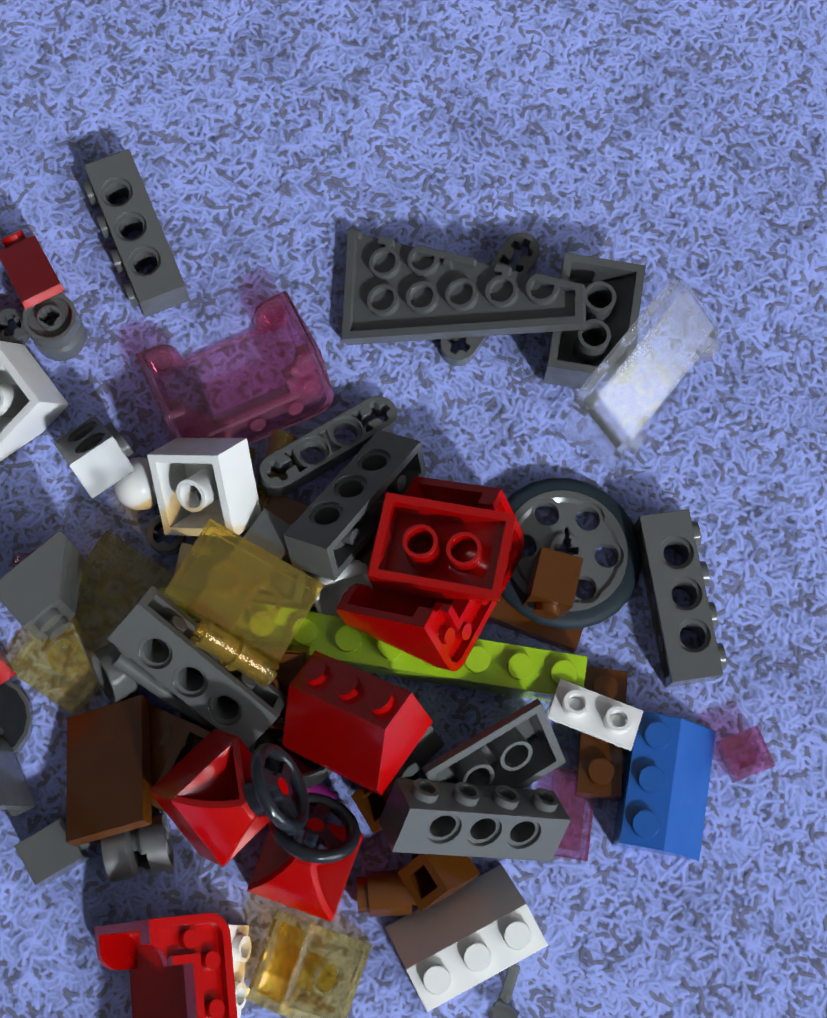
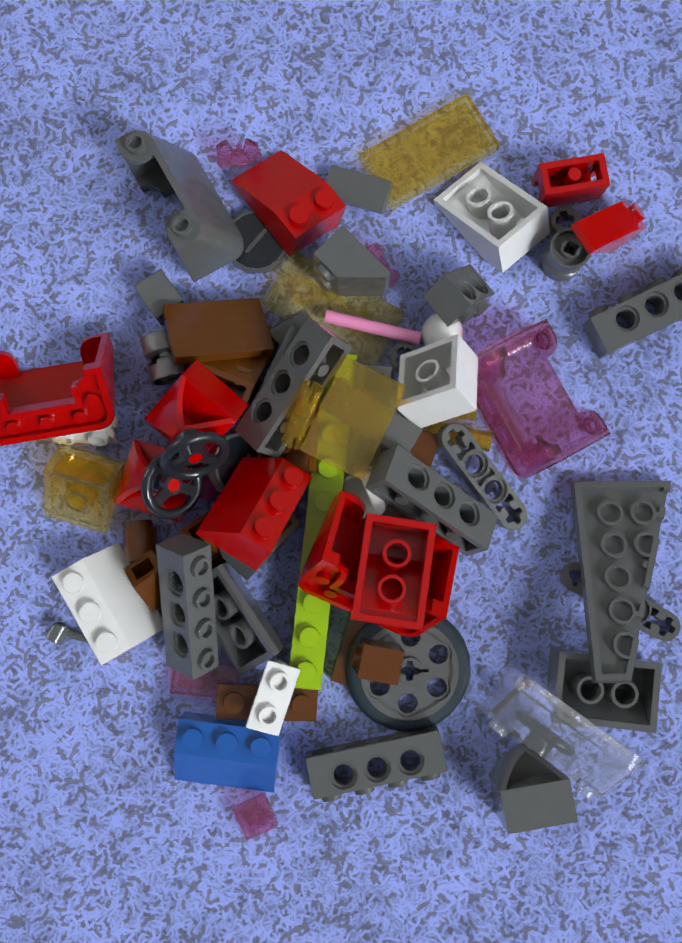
camera: 90 degrees right, 10 degrees up
(123, 570) = (372, 327): none -> bright pink bar
(712, 413) = (530, 792): none -> dark grey piece

